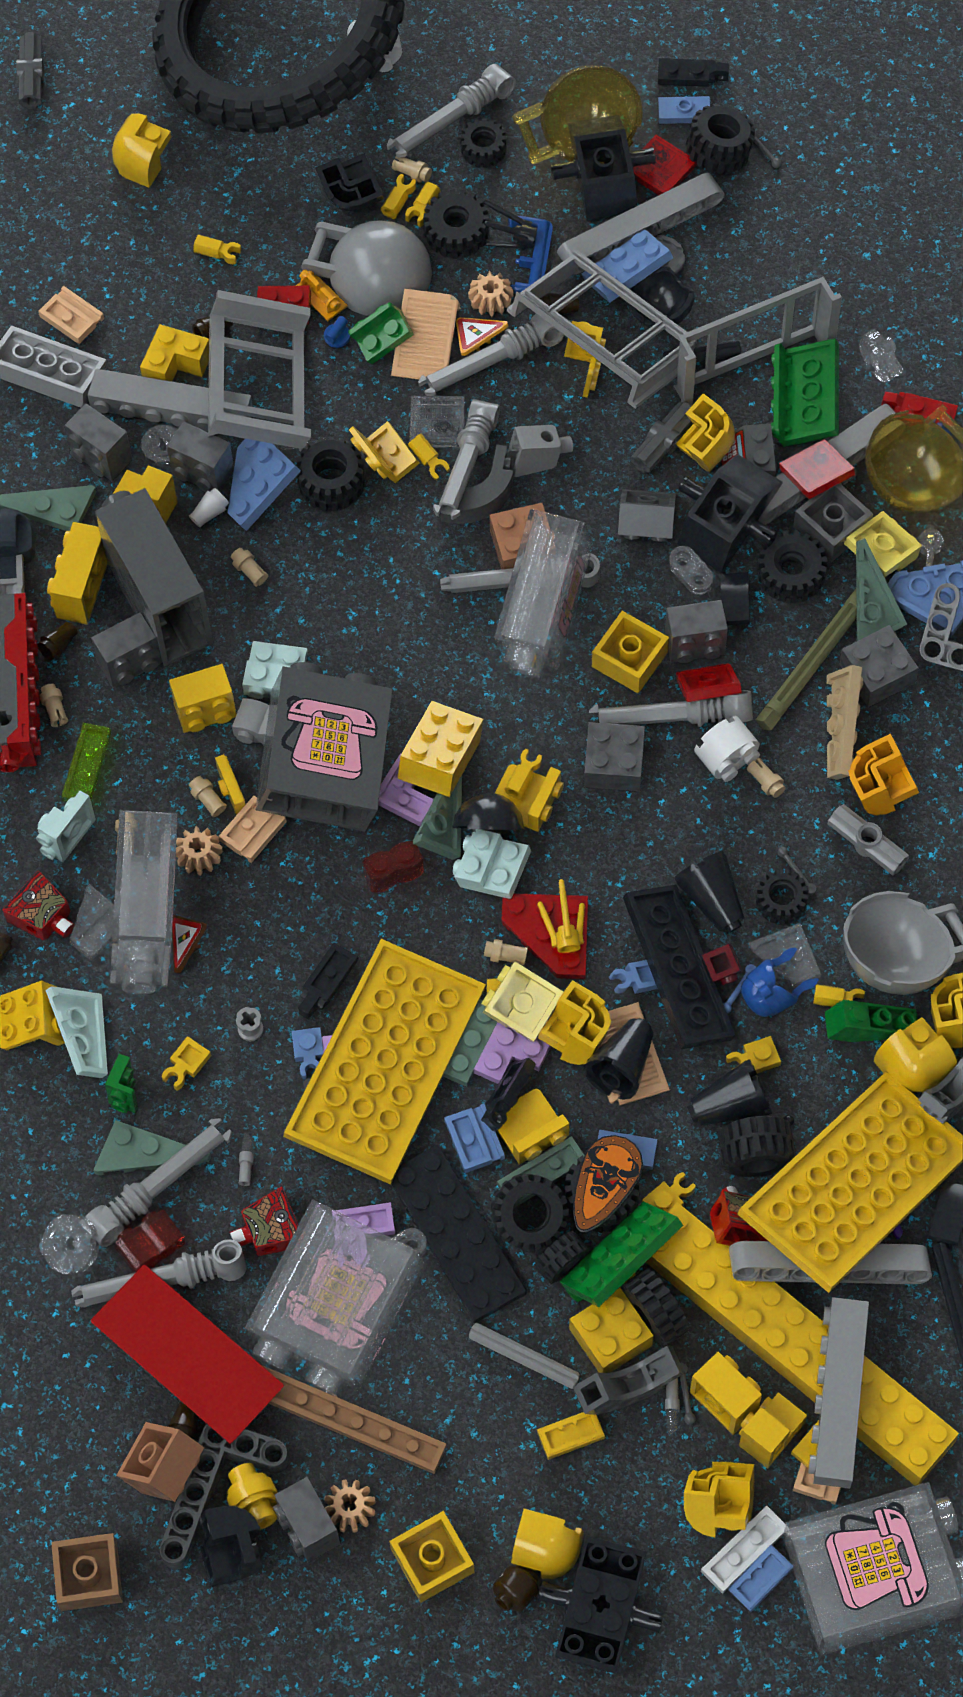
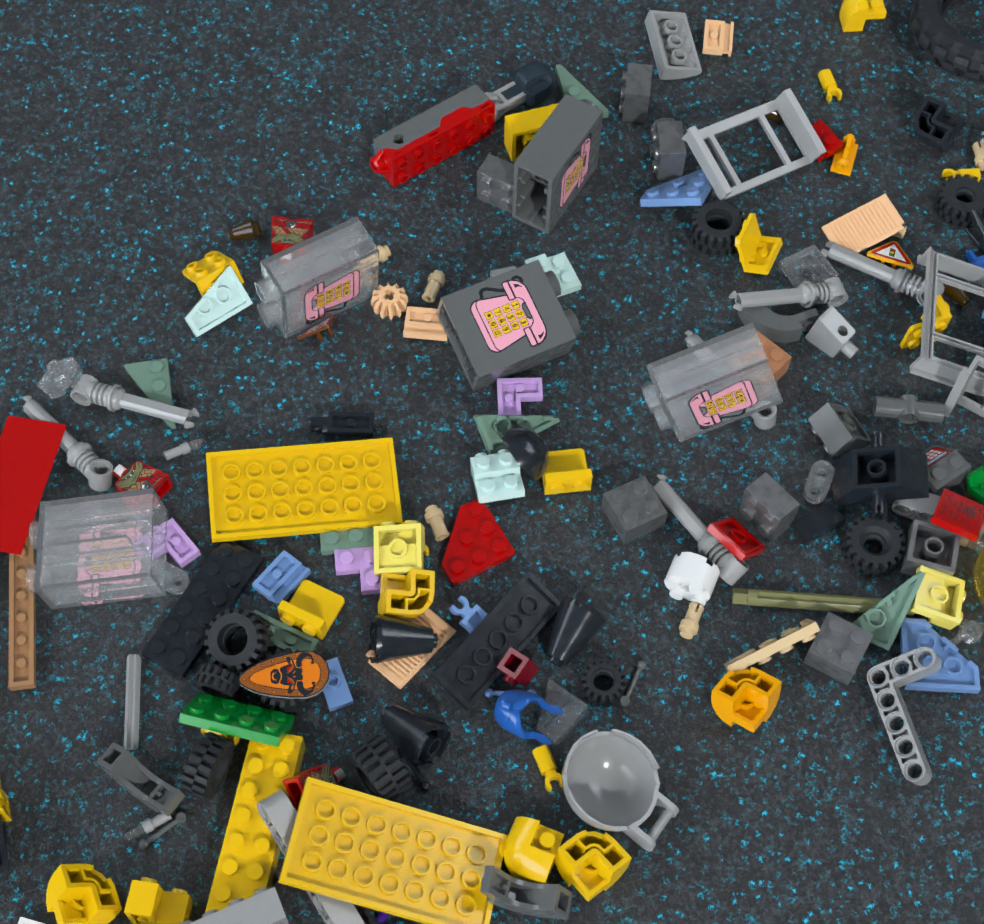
camera: 55 degrees right, 5 degrees down
(51, 698) = (442, 168): tan animal -> none
(56, 641) = (482, 148): dark brown cone -> none
(63, 830) = (345, 208): light aqua plate -> none
(86, 761) = (409, 209): clear neon green plate -> none
(120, 1086) = (188, 342): green bracket -> none
(150, 1241) = (89, 423): clear red brick -> none
(155, 399) = (694, 107): light grey brick -> none
(158, 485) = (621, 140): yellow brick -> none
(175, 351) = (730, 98): yellow brick -> none
(187, 1059) = (234, 376): yellow plate -> none
(203, 698) = (497, 241): yellow brick -> none
(210, 506) = (643, 177): white cone -> none
(228, 783) = (456, 284): yellow plate -> none
(245, 562) = (617, 217): tan animal -> none
(248, 1032) = (282, 396): light grey bush -> none
(307, 1048) = (289, 437): medium blue plate -> none
(337, 334) = (824, 179): blue plate -> none
(371, 263) = (891, 169): light grey windscreen -> none
(381, 332) = (844, 199): green bracket -> none
(387, 868) = (454, 418): clear red brick -> none
(398, 197) = (954, 160): yellow bar -> none
(427, 455) = (777, 274): yellow bar -> none
(440, 748) = (558, 396): yellow brick -> none
(490, 293) = (923, 241): light nougat gear -> none
(506, 1092) = (323, 579): black hinge -> none
(522, 775) = (578, 458): yellow bar -> none
(567, 938) = (468, 550): yellow plant -> none
(570, 1434) = (83, 764): yellow plate -> none
(611, 1332) = (172, 746): yellow brick -> none
(630, 652) = (721, 474): yellow brick -> none
(666, 1197) = (313, 733): yellow plate -> none
(709, 435) = (931, 434): yellow brick -> none
(725, 1391) = (169, 854): yellow brick -> none
(761, 1052) = (464, 736): yellow plate -> none
(866, 1021) = (541, 800): green slope -> none
(881, 850) = (689, 732): light grey piece -> none

